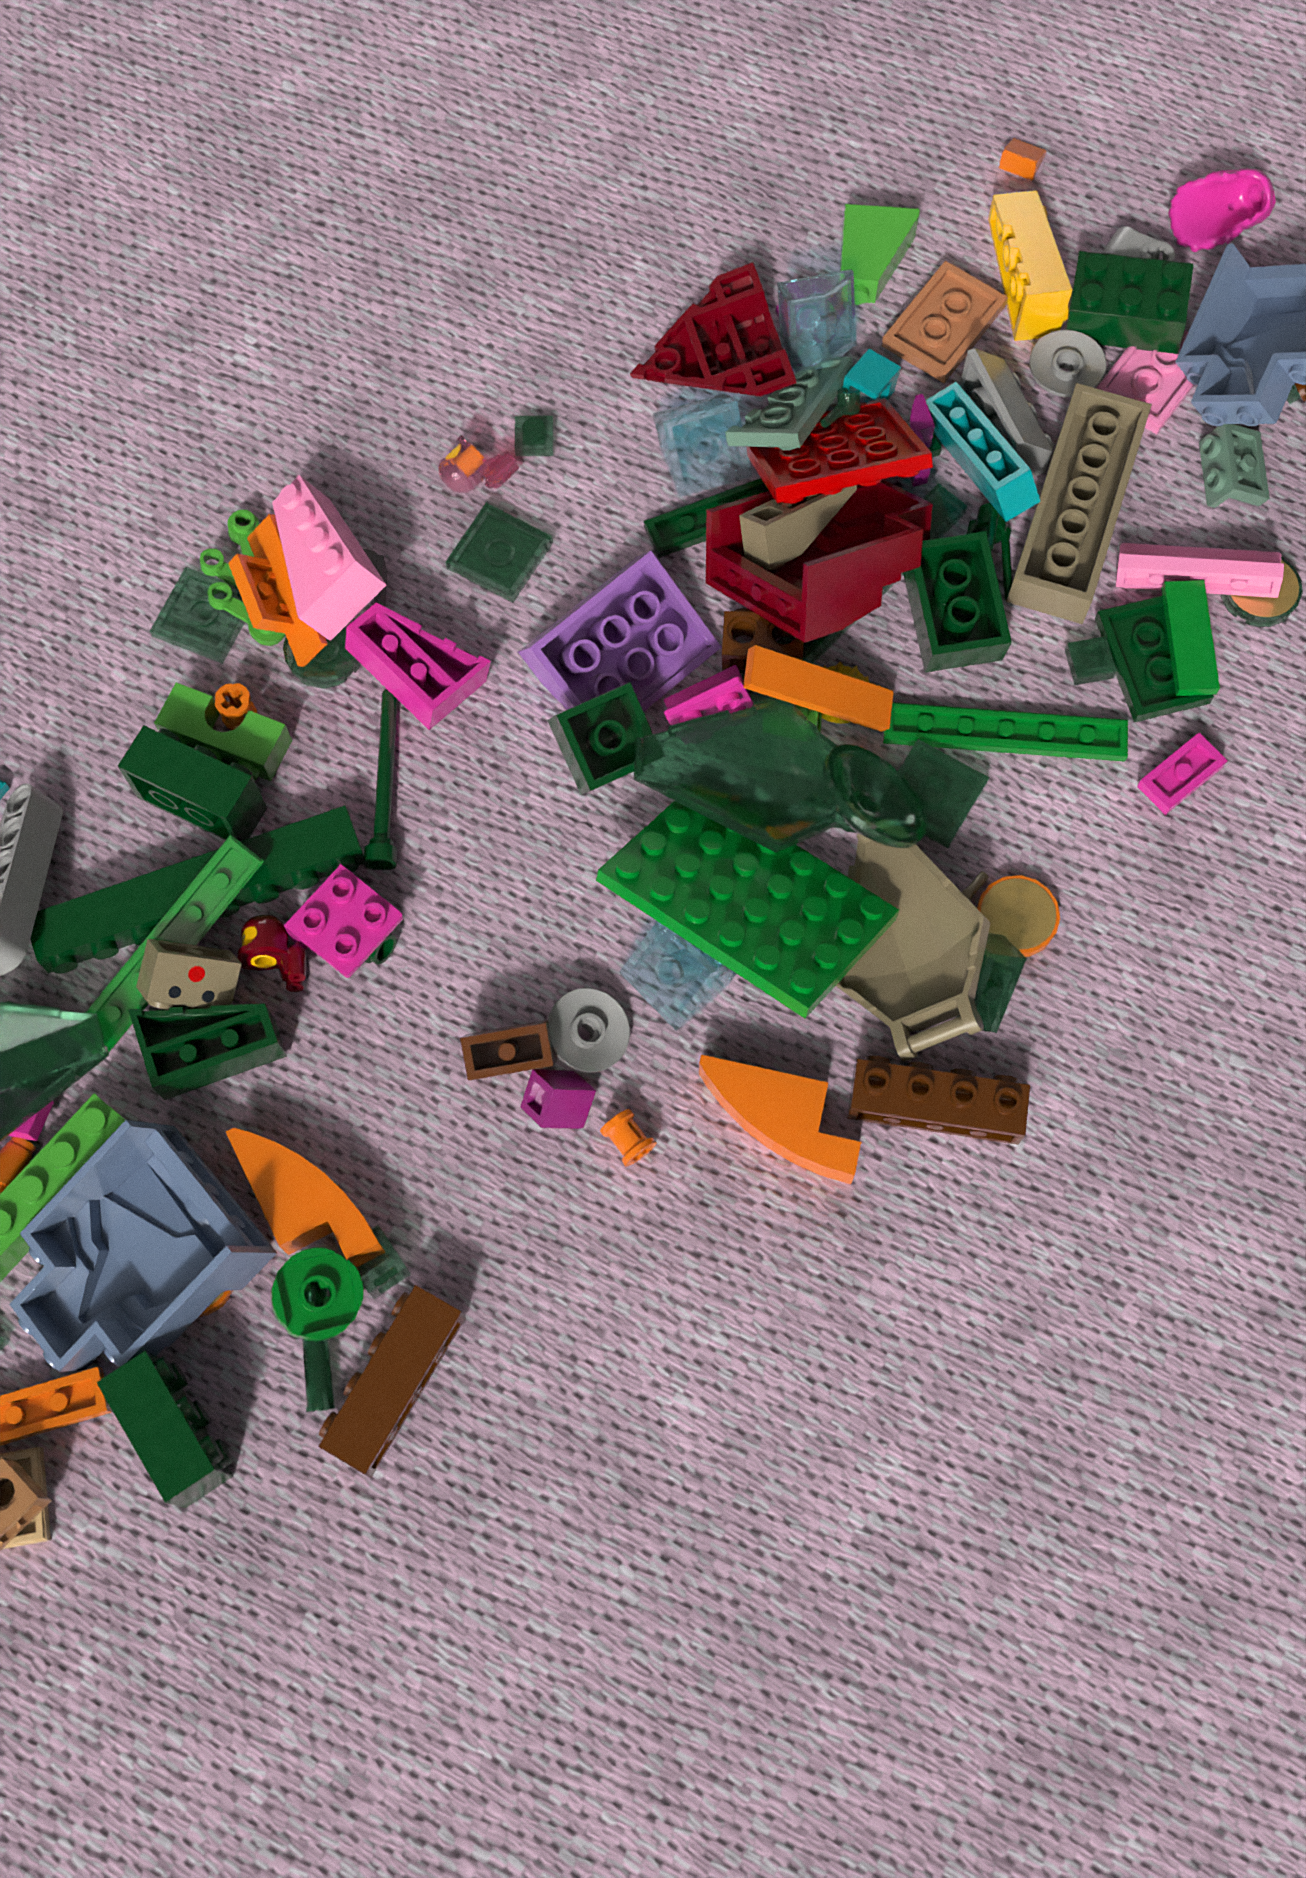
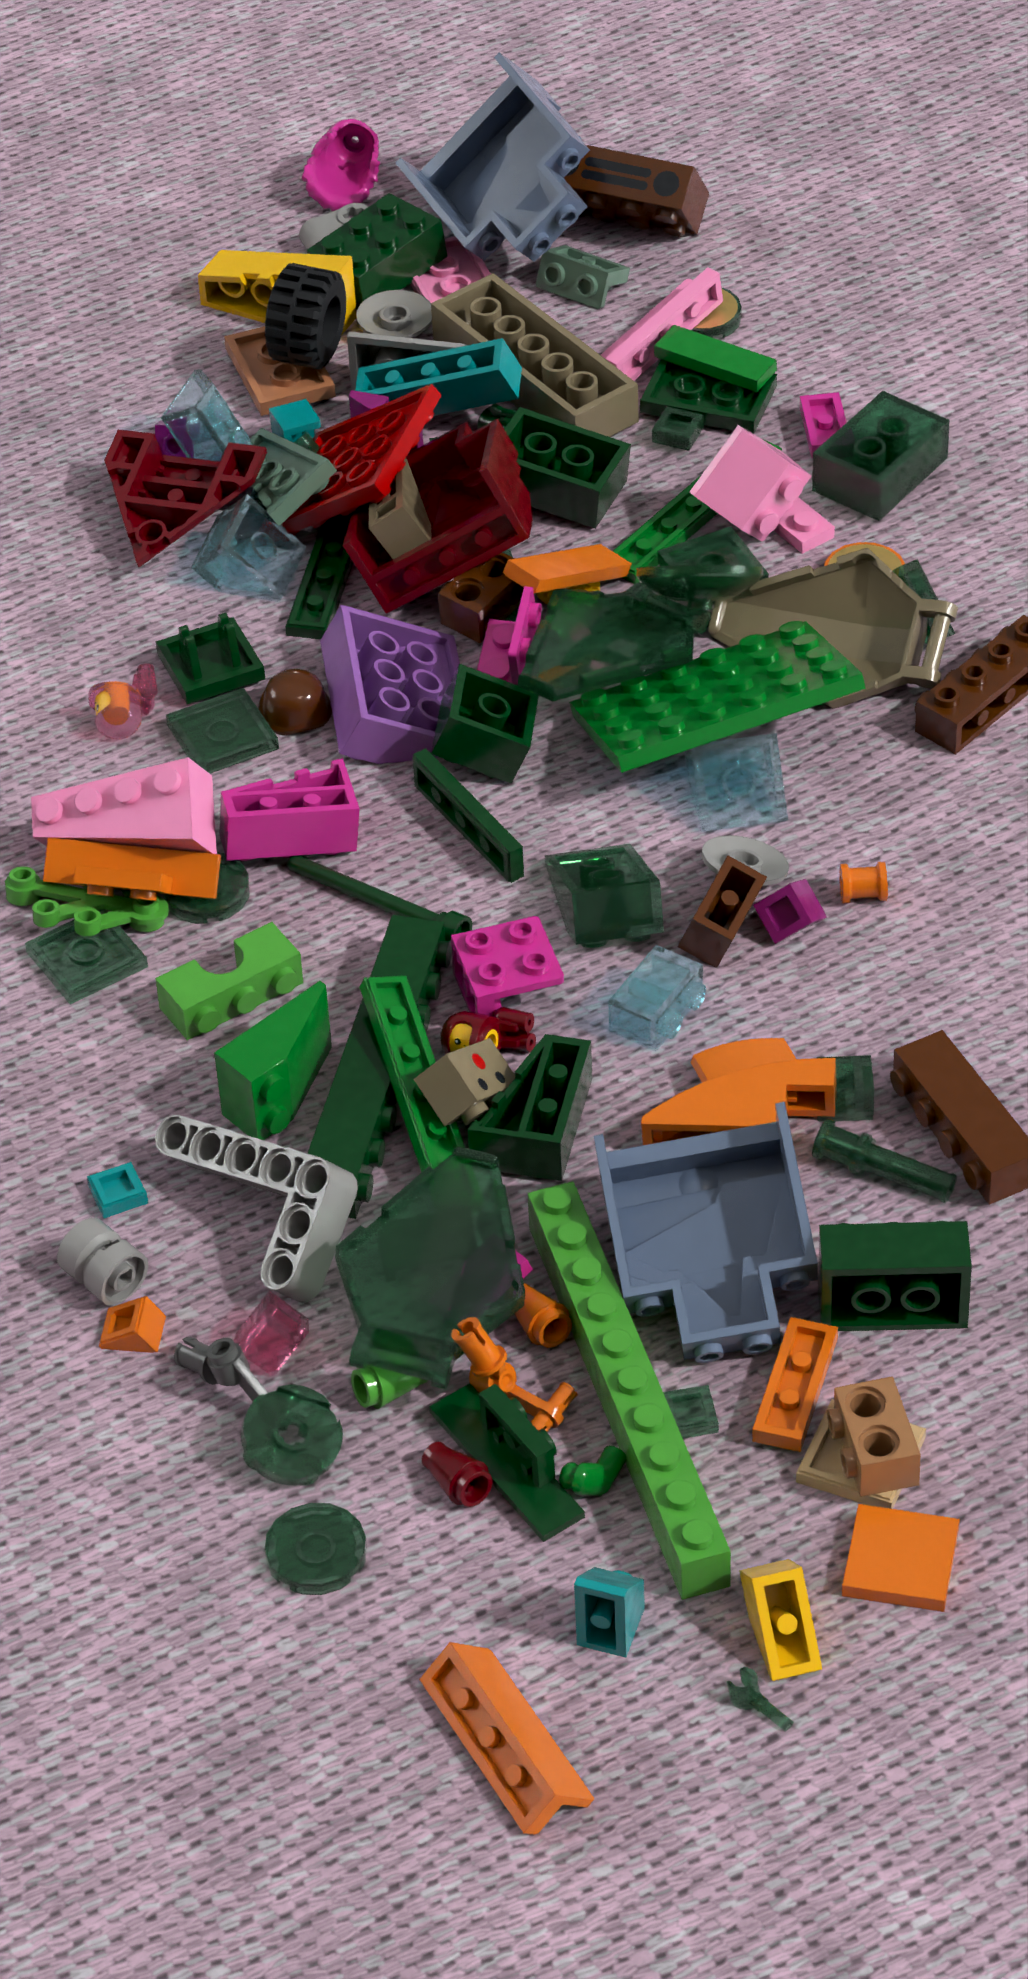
camera: 55 degrees left, 25 degrees down
(133, 826) = (274, 1064): none -> green slope
(193, 784) = (254, 992): dark green brick -> none
(238, 697) = (212, 952): orange bush -> none
(301, 1316) = (865, 1131): green plate -> none
(361, 1166) = (740, 1055): none -> orange slope
(391, 1055) = (656, 998): none -> clear light blue brick
(488, 941) = (606, 895): none -> clear green slope
(509, 787) = (468, 816): none -> dark green tile
(534, 435) = (123, 659): clear green plate -> none
(561, 582) = (295, 702): none -> reddish brown helmet
(567, 493) = (210, 659): none -> dark green plate
(781, 1114) = (923, 780): orange slope -> none
(875, 245) = (155, 367): bright green slope -> none
(975, 303) = (305, 316): none -> black tyre
(1022, 158) = (168, 257): orange slope -> none
(1031, 767) = (750, 483): none -> bright pink slope
(1046, 818) = (804, 527): none -> bright pink plate
(1163, 844) = (880, 455): none -> clear green brick

